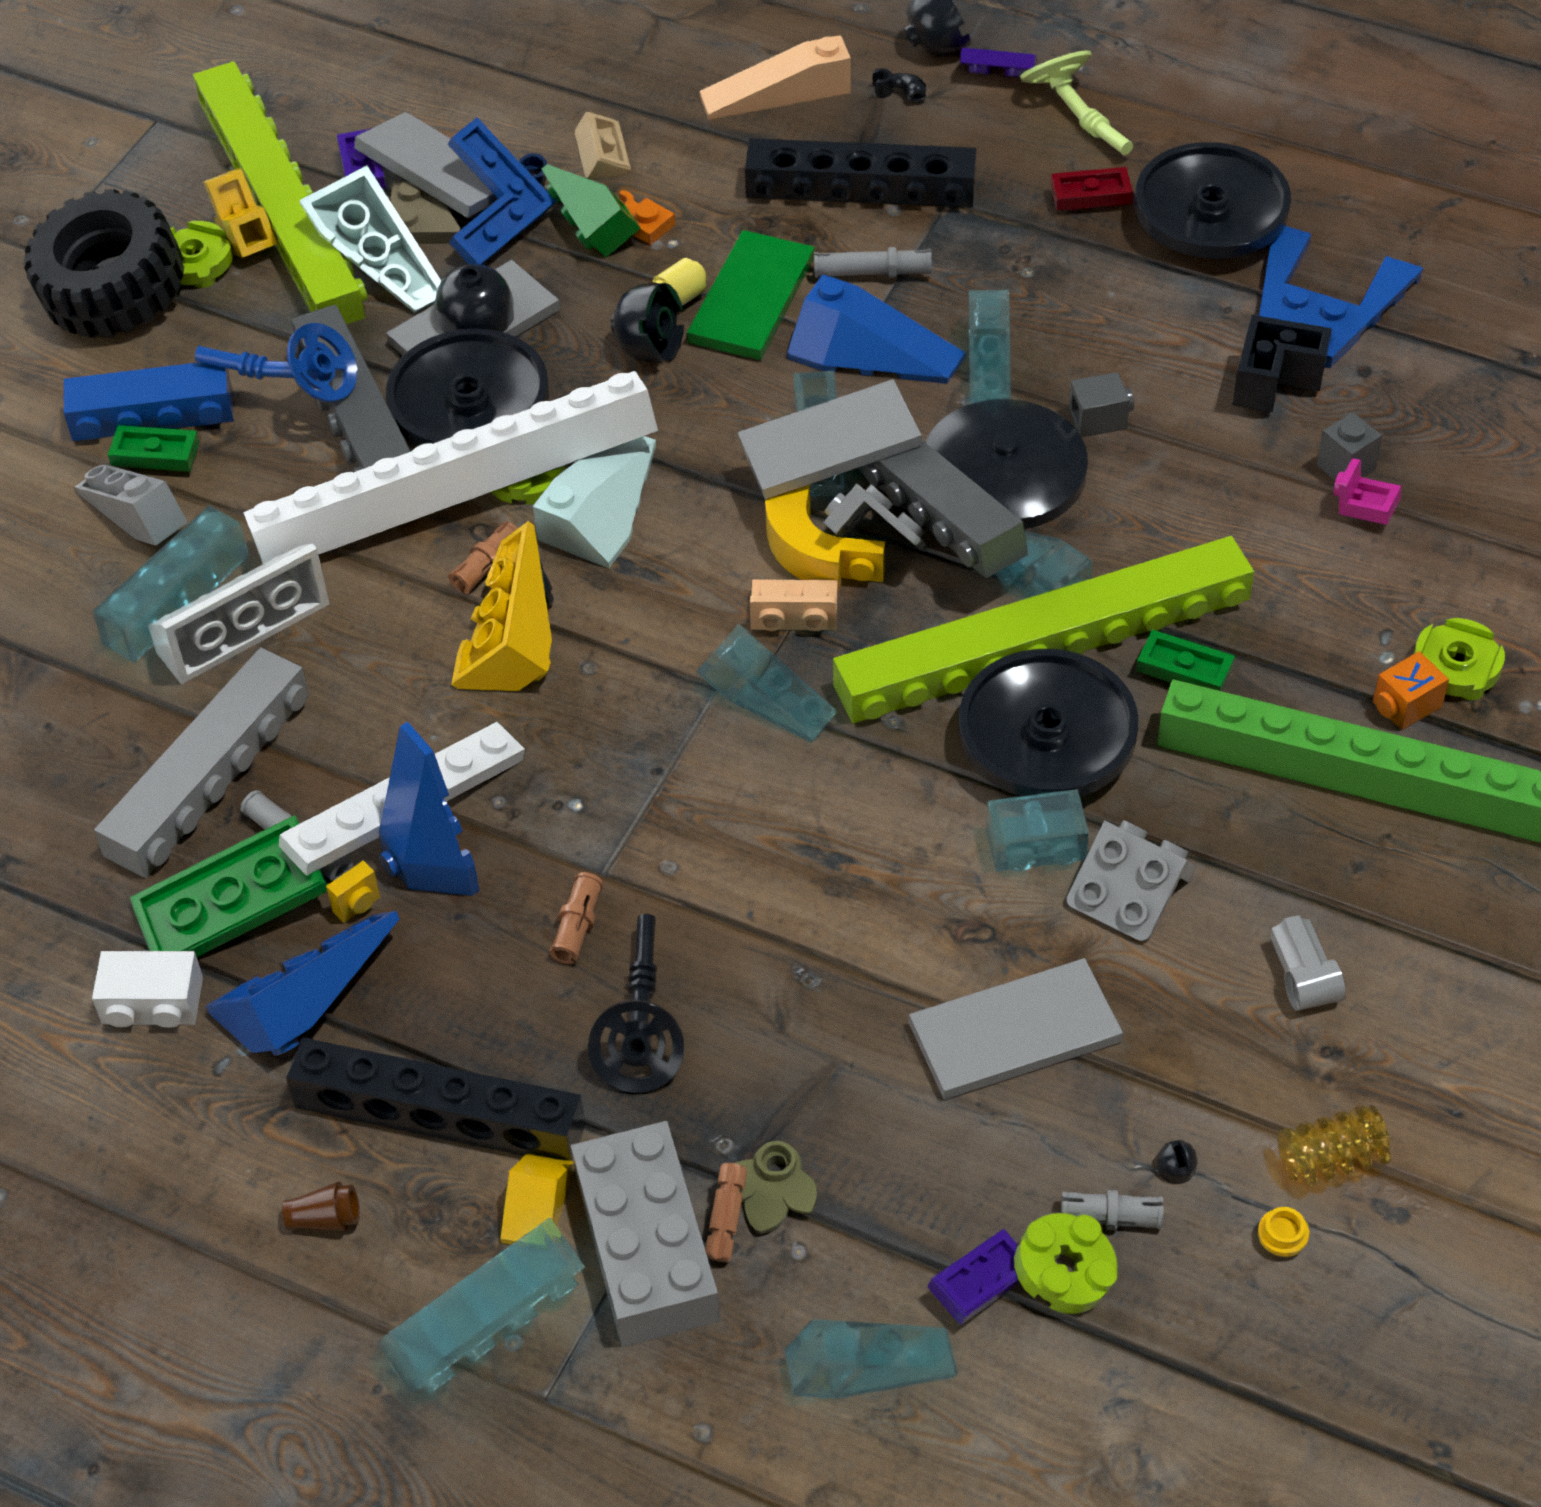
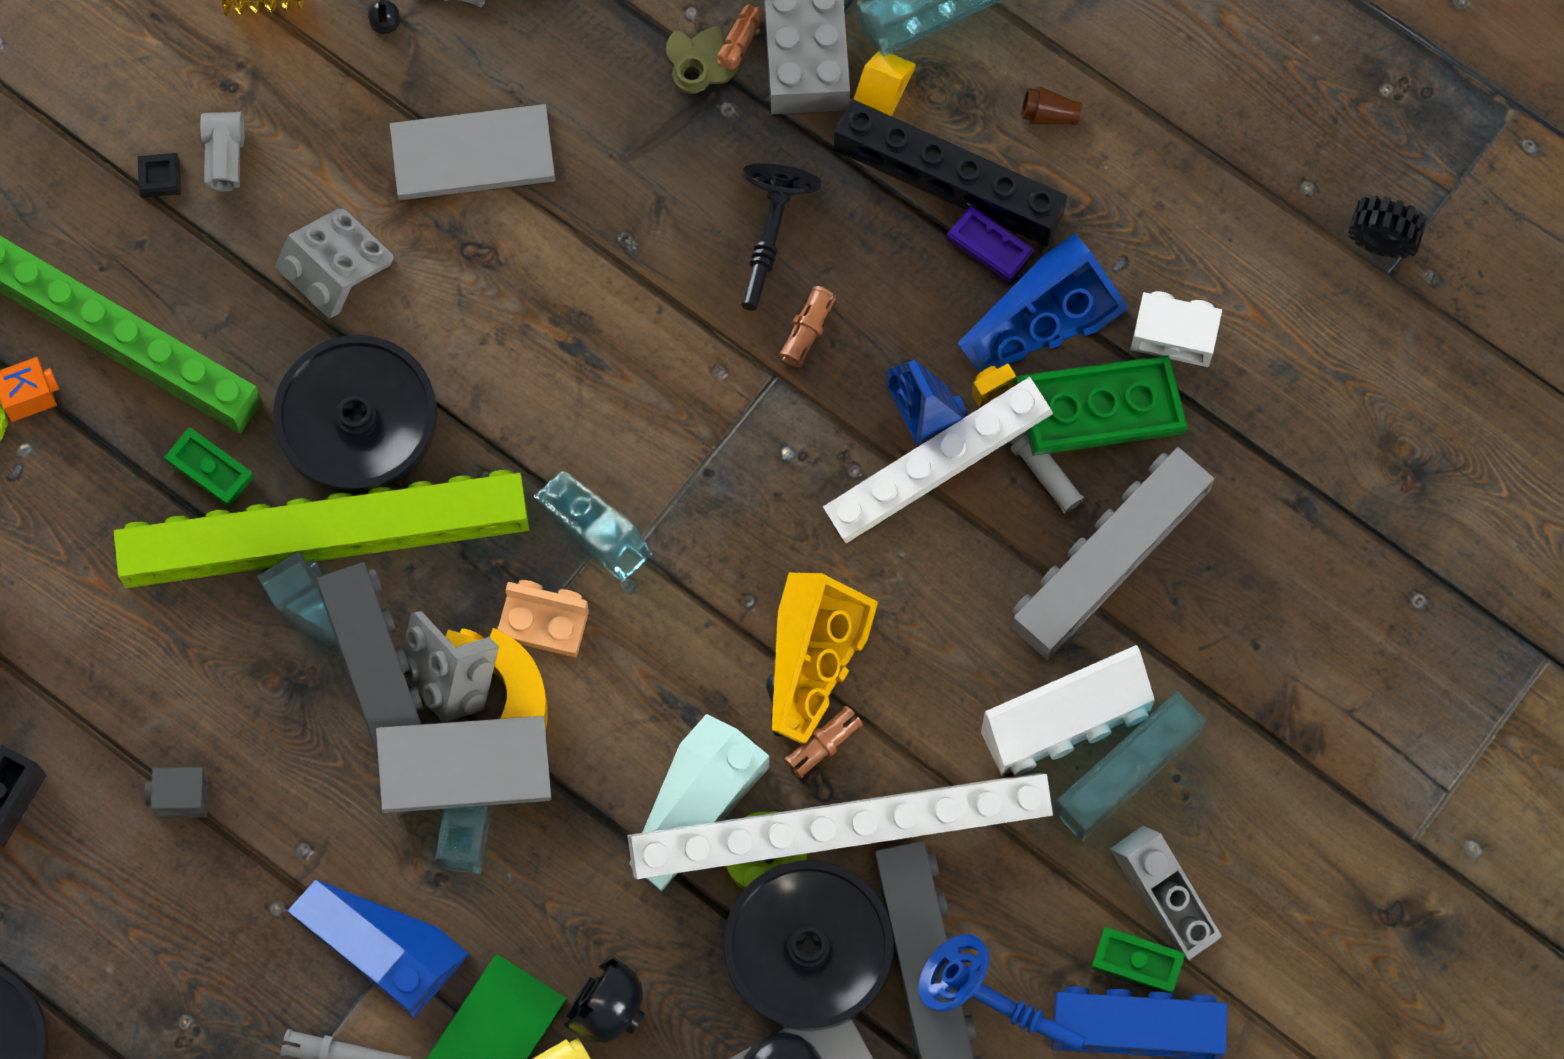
camera: 170 degrees left, 20 degrees up
(377, 1034) = (990, 244): none -> dark purple plate
(988, 345) = (263, 897): clear light blue slope -> none
(1017, 455) = (293, 751): black dish -> none
(1037, 830) = (400, 316): clear light blue brick -> none
(1368, 934) = (159, 175): none -> black tile

